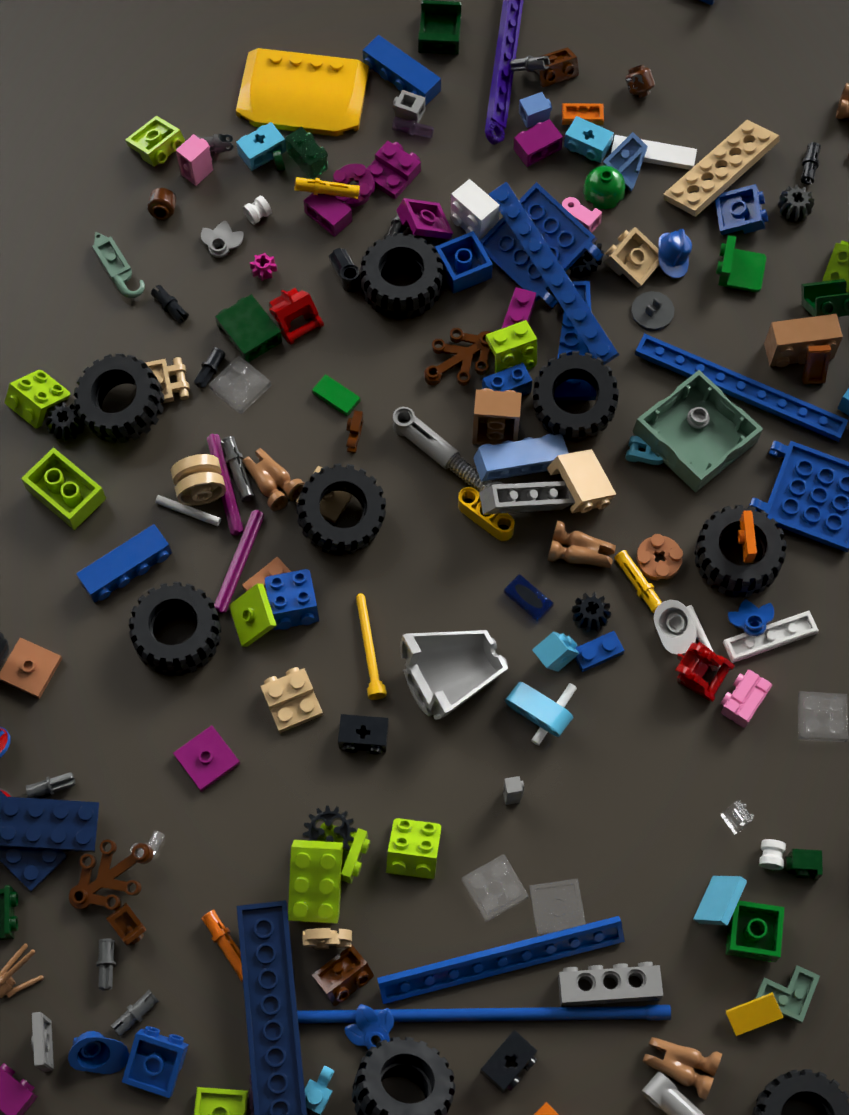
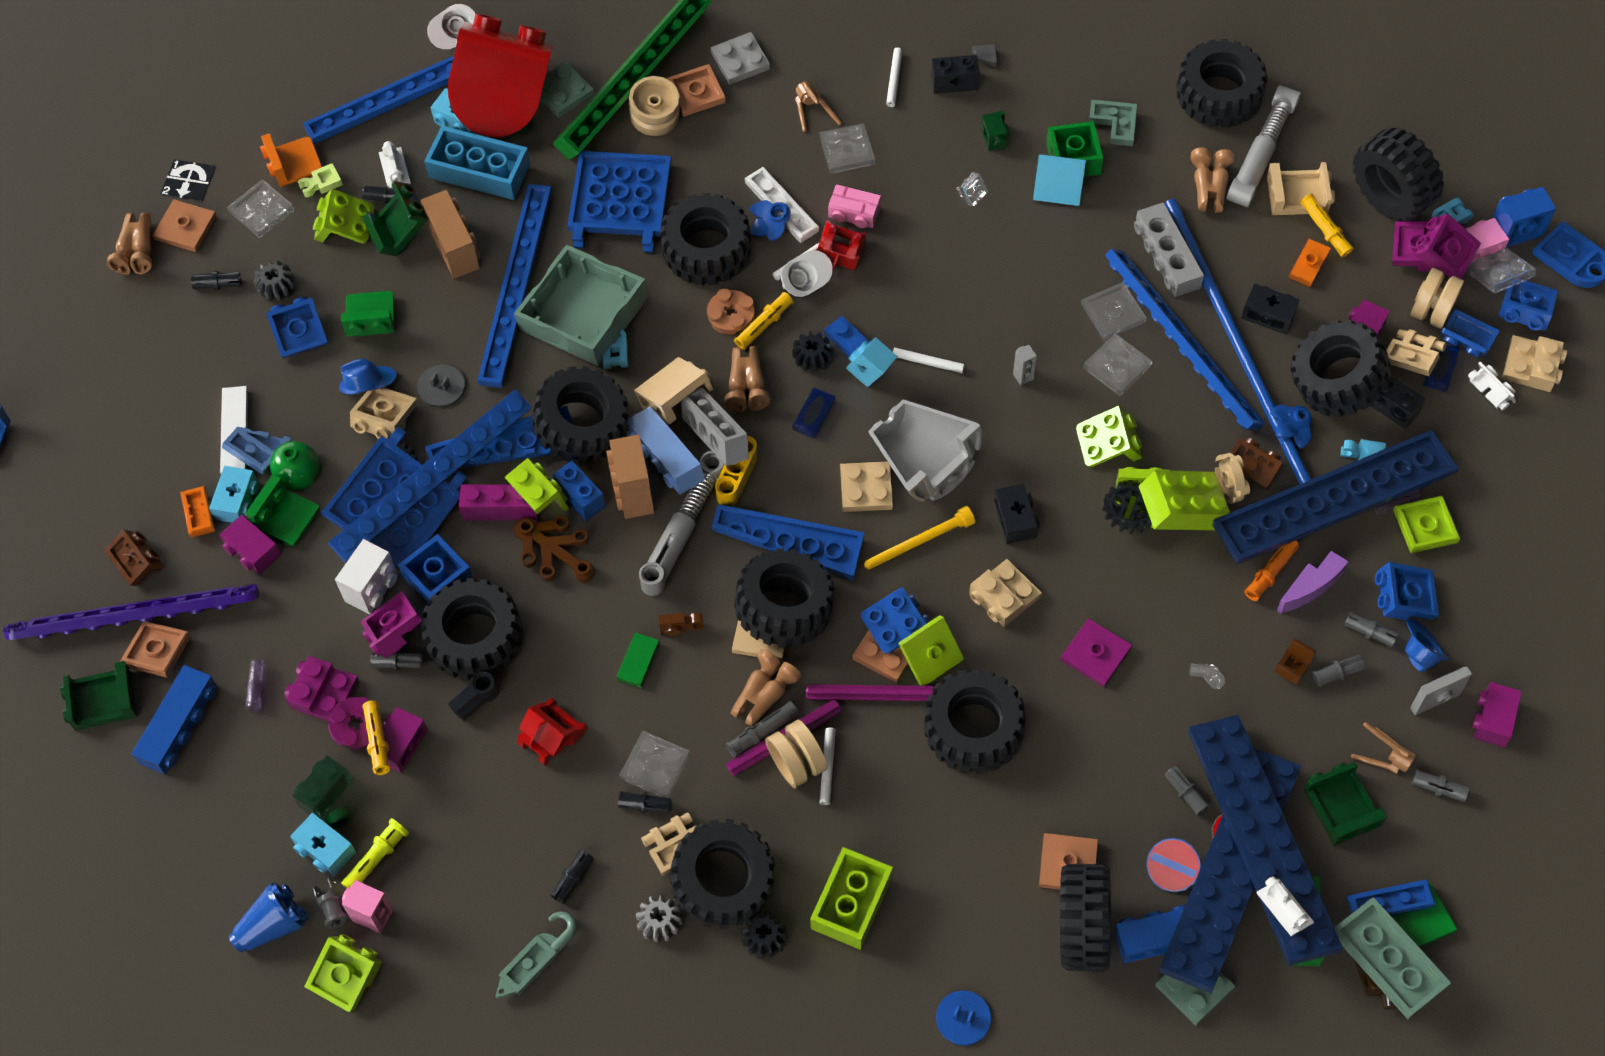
camera: 105 degrees left, 5 degrees down
(34, 395) = (741, 980): lime bracket -> none
(107, 346) = (651, 925): none -> light grey gear
(107, 876) = (1258, 694): reddish brown plant -> none
(124, 563) = (916, 804): blue brick -> none
(161, 203) = (435, 932): reddish brown head -> none
(198, 976) = (1313, 582): none -> medium lavender slope
(215, 104) = (268, 918): none -> blue cone
(221, 237) = (462, 852): light grey plate -> none
(245, 184) = (382, 845): none -> neon yellow pin
(249, 328) = (580, 774): dark green panel -> none
(257, 210) = (416, 818): white wheel -> none
(263, 266) = (501, 785): dark pink gear -> none
(302, 91) = (228, 827): yellow slope -> none
(394, 556) = (832, 546): none -> blue wing
(409, 106) = (224, 688): light grey brick -> none
(438, 614) = (866, 486): none -> tan plate
(467, 68) = (155, 649): none -> nougat plate
(530, 63) = (143, 576): dark grey axle -> none
(534, 109) = (203, 560): medium blue brick -> none
(539, 709) = (932, 367): medium azure beam -> none
(561, 168) = (281, 512): none -> green bracket
(587, 218) = (342, 470): bright pink leg -> none
(640, 80) = (141, 461): reddish brown head -> none
(698, 417) = (565, 308): light grey plate -> none
(723, 177) = (247, 373): tan plate -> none
(746, 536) = (701, 218): orange plate -> none
(754, 1014) = (1145, 138): yellow tile -> none
(772, 854) = (996, 156): white wheel -> none
(816, 364) = (475, 217): dark orange tile -> none

